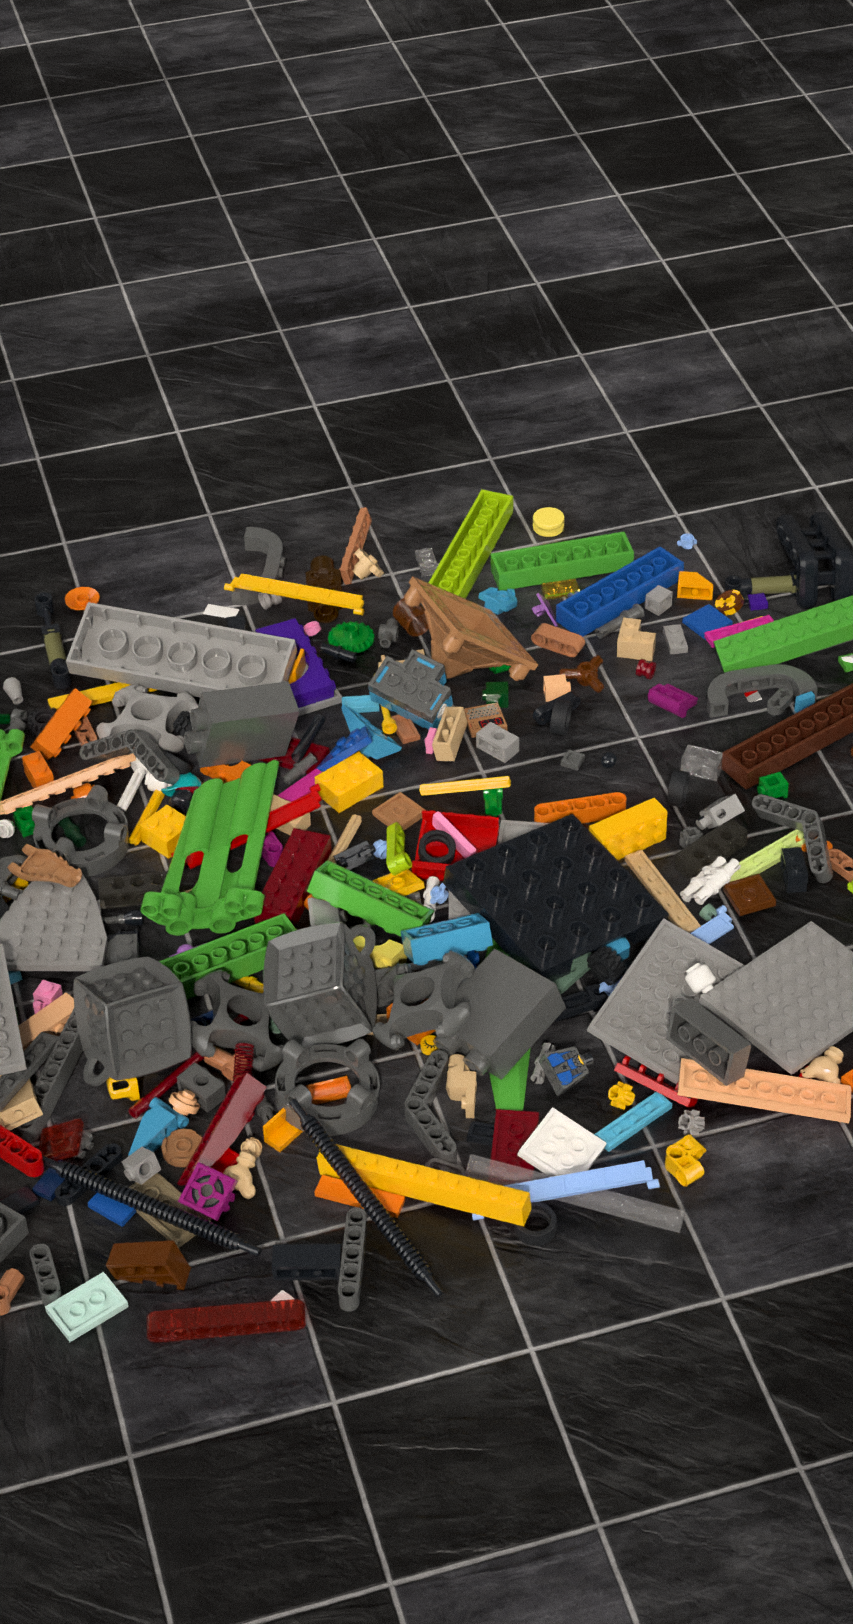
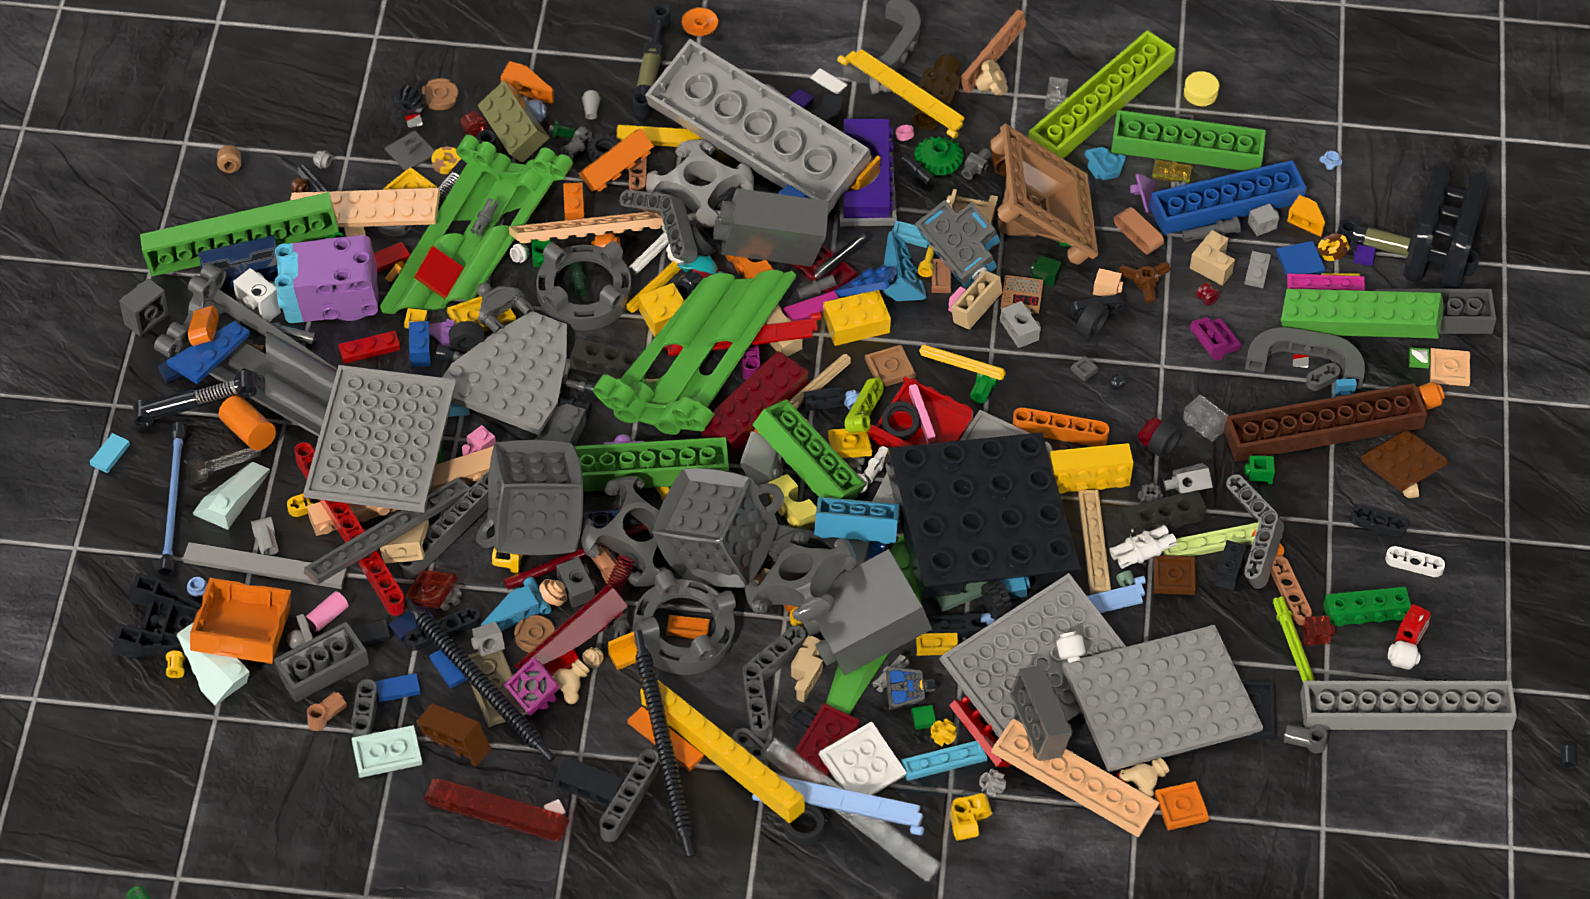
camera: 20 degrees right, 10 degrees up
(46, 867) = (532, 311): medium nougat animal -> none
(70, 1243) = (397, 687): none -> blue tile
(439, 894) = (878, 469): light blue plate -> none
(571, 1023) = (935, 643): none -> yellow plate
(593, 1090) = (923, 717): none -> green tile
(660, 788) = (1147, 430): none -> dark red brick

